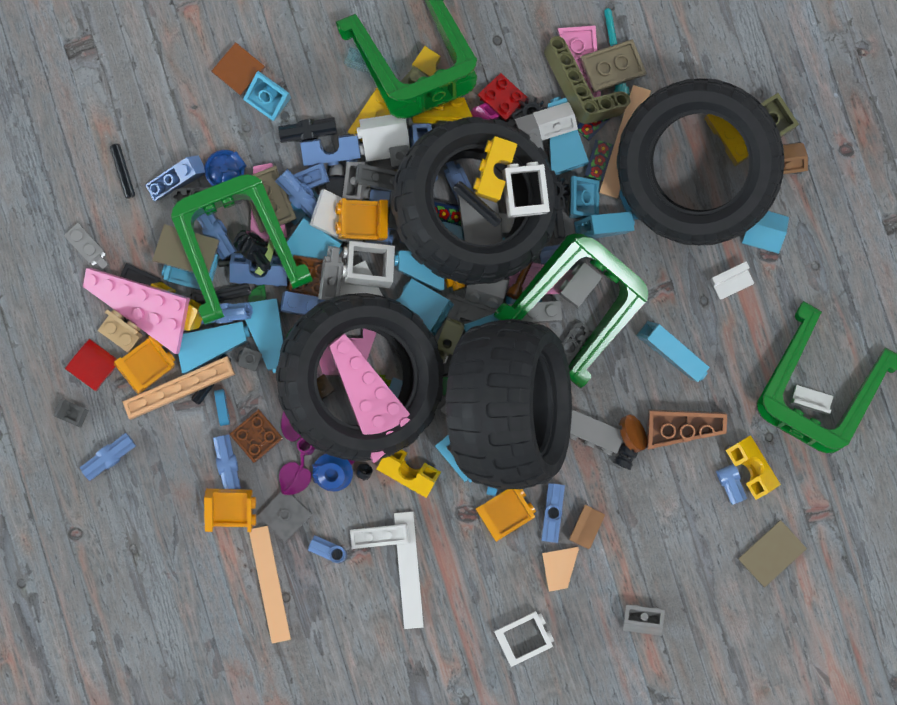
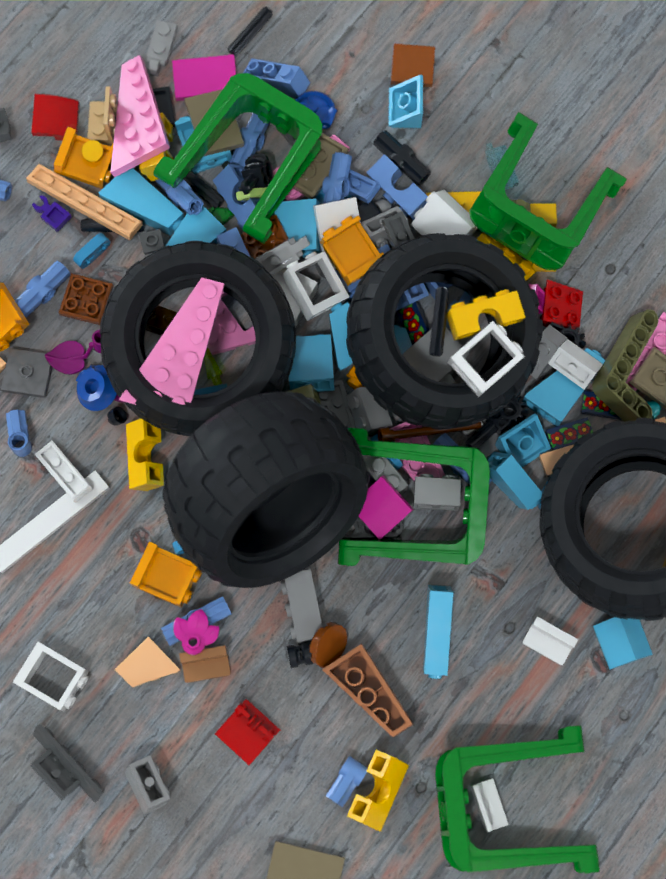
camera: 55 degrees right, 10 degrees down
(137, 230) = (202, 75): none -> dark pink tile
(142, 355) = (92, 151): none -> yellow tile
(173, 417) = (52, 215): none -> dark purple plate
(561, 516) = (197, 629): none -> dark pink plate
(568, 327) = (383, 508): none -> dark pink tile
(592, 672) = (60, 769): none -> dark grey bracket
(652, 528) = (247, 732): none -> red hinge

